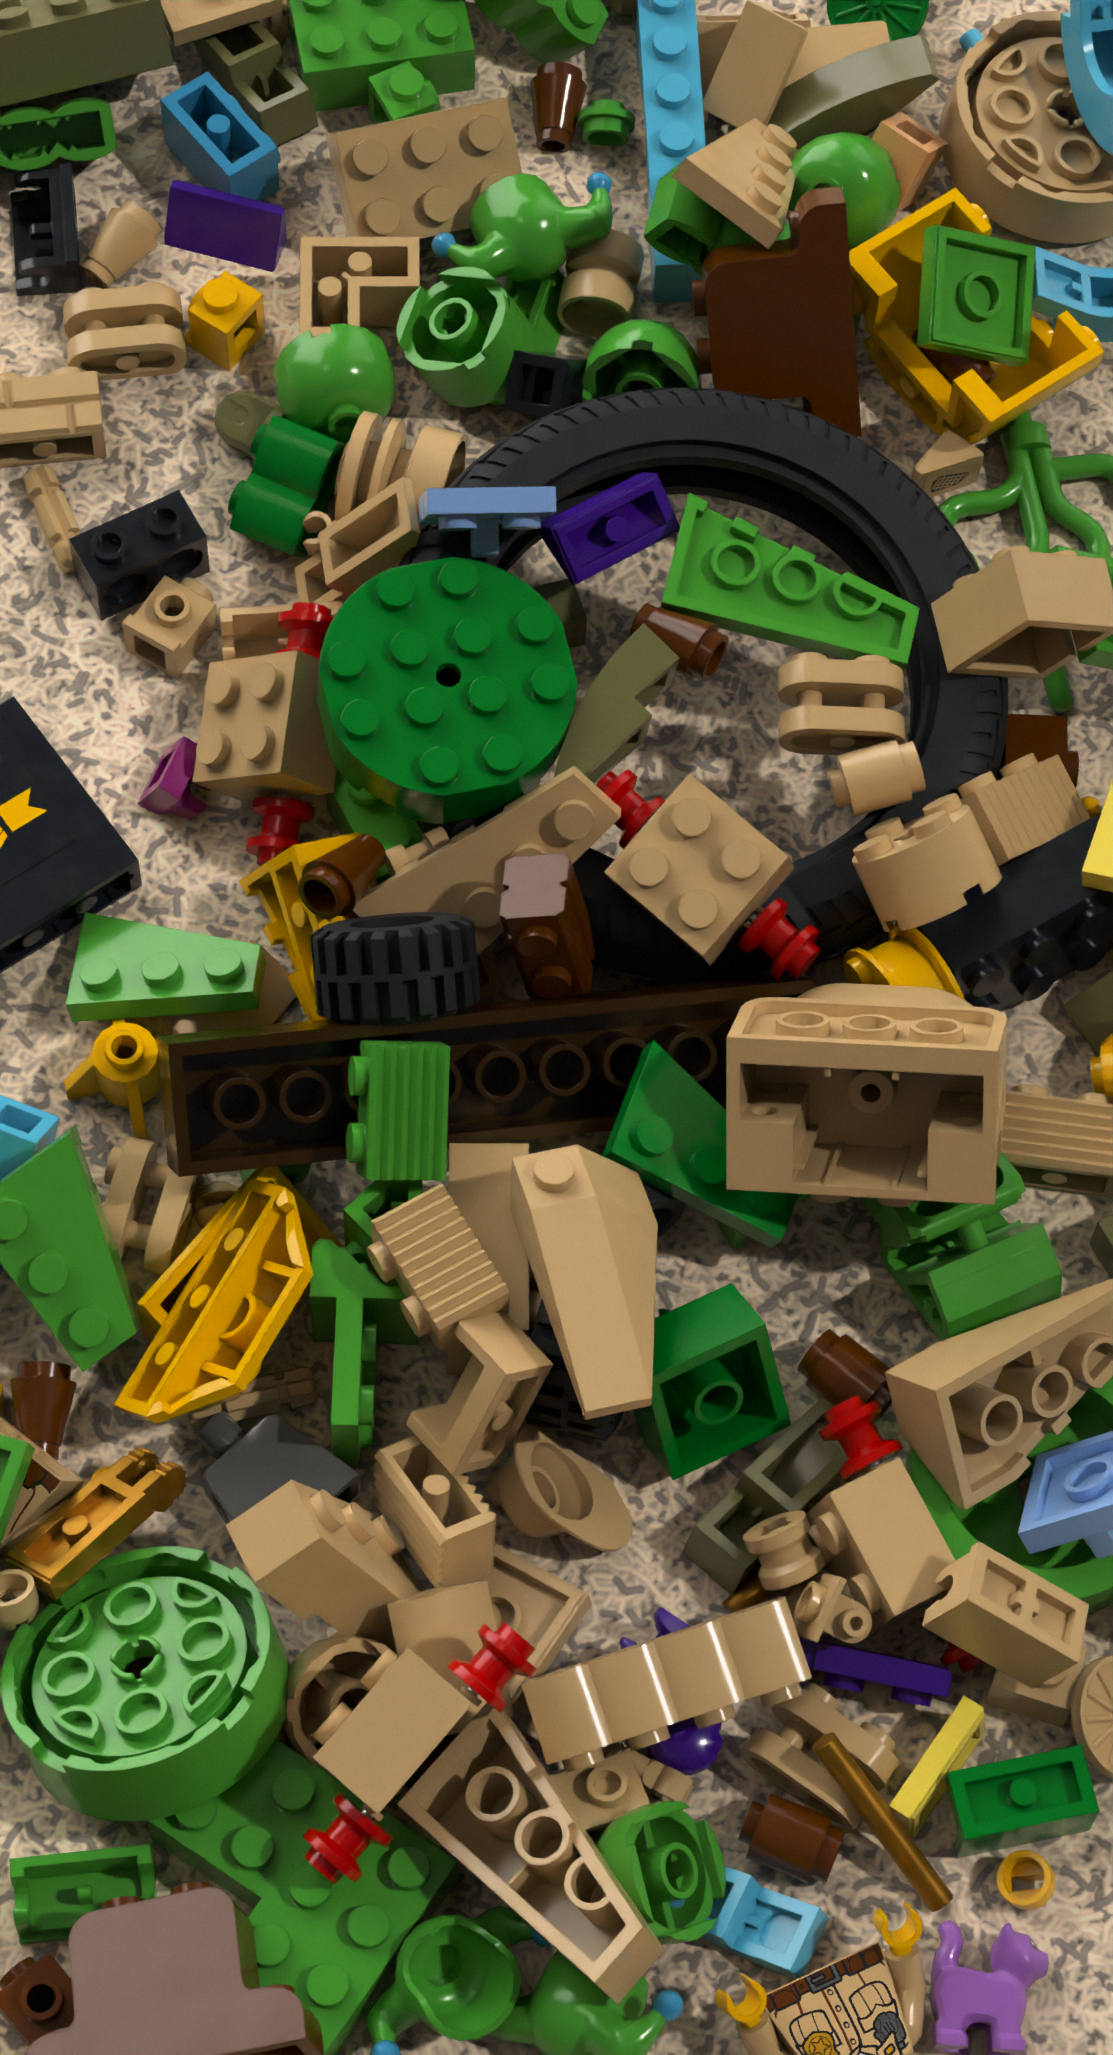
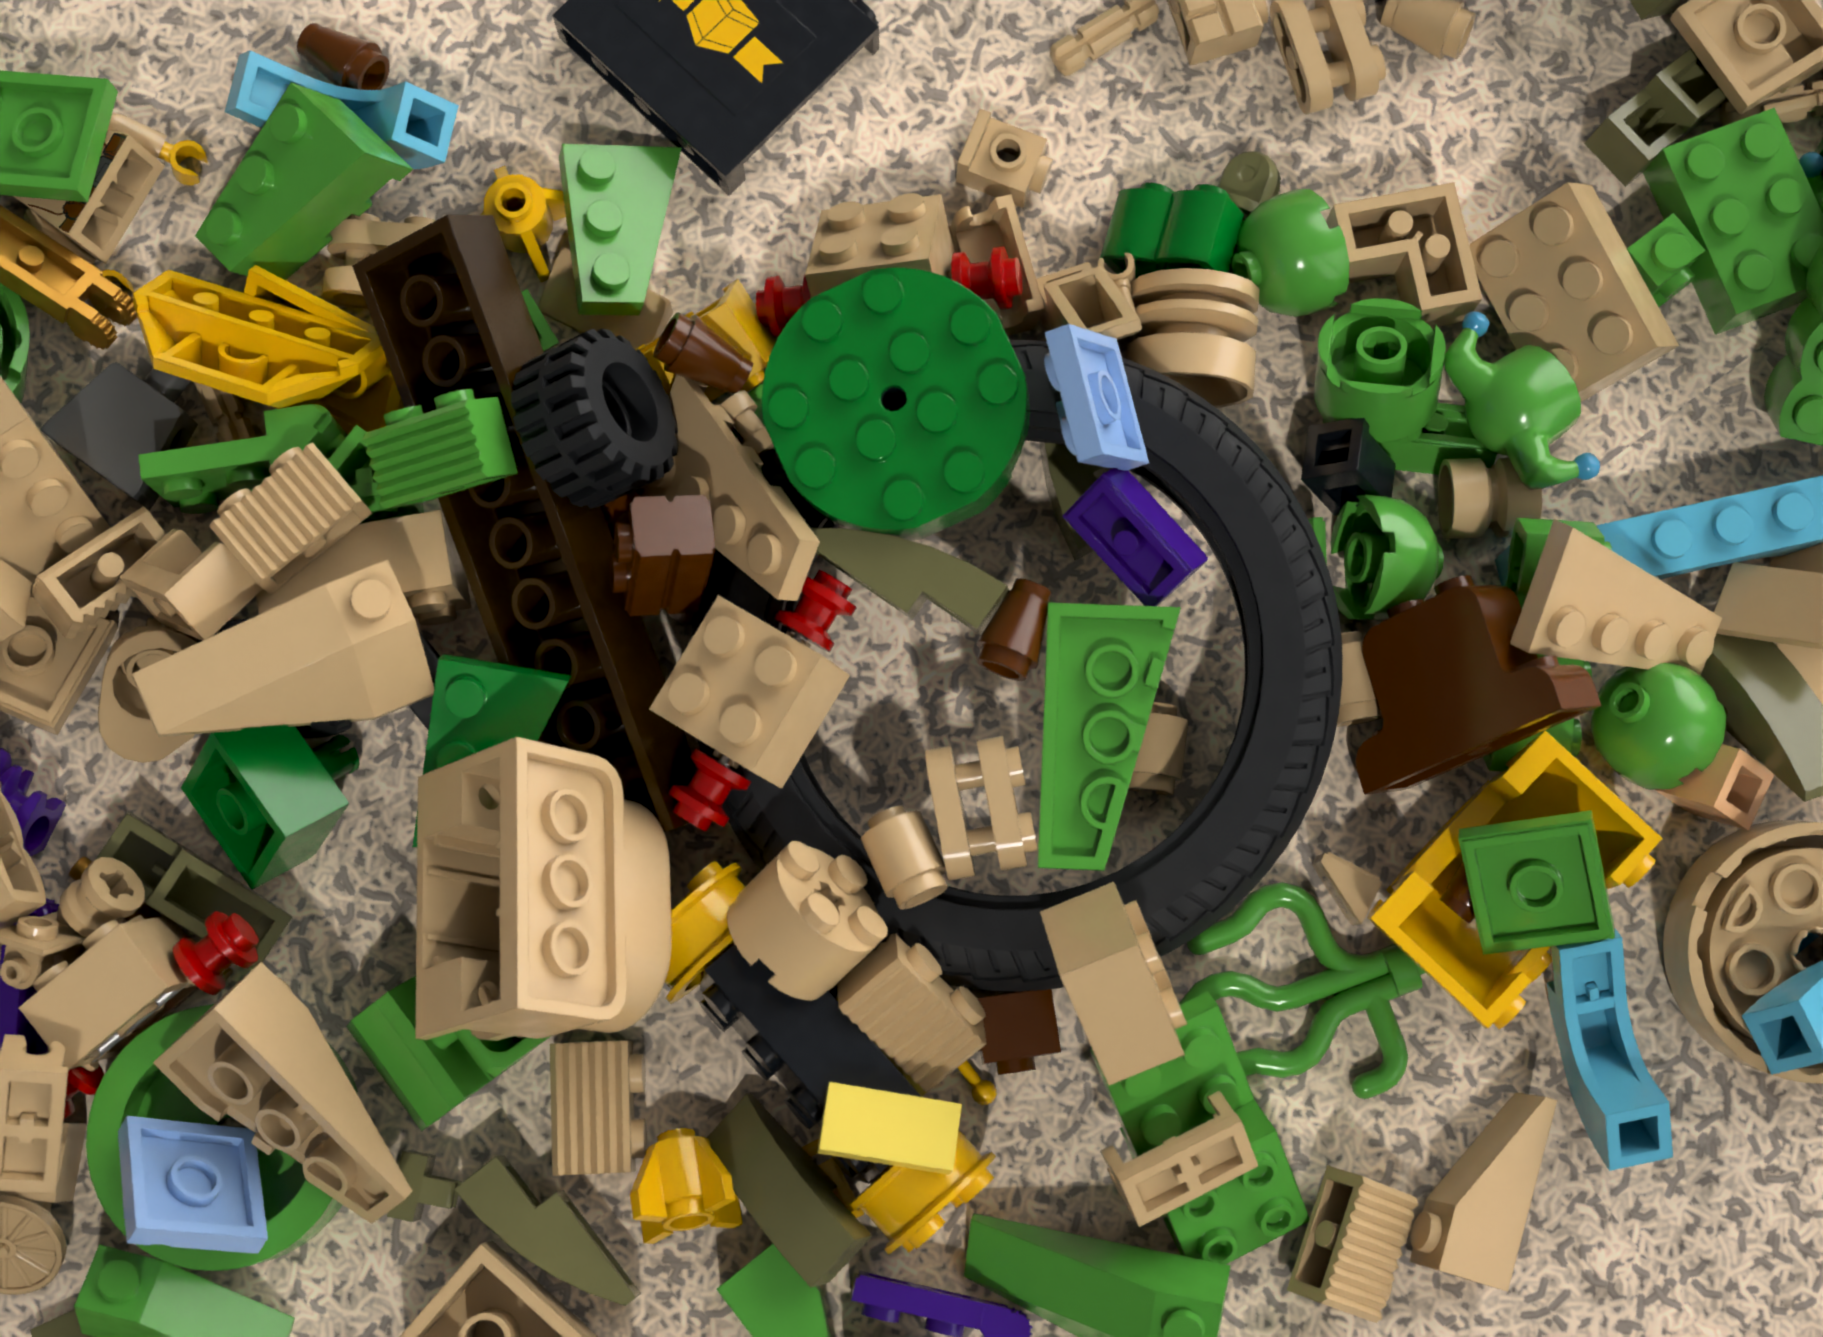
camera: 80 degrees right, 15 degrees up
(43, 1402) = (175, 213): reddish brown cone -> none
(132, 553) = (1070, 112): black brick -> none
(169, 783) = (824, 192): magenta tile -> none
(216, 315) = (1360, 128): yellow brick -> none
(219, 140) = (1563, 88): dark azure brick -> none
(225, 226) = (1474, 118): dark purple slope -> none
(556, 101) = (1706, 417): reddish brown cone -> none
(606, 123) = (1696, 471): bright green plate -> none
(844, 1368) = (313, 938): reddish brown brick -> none

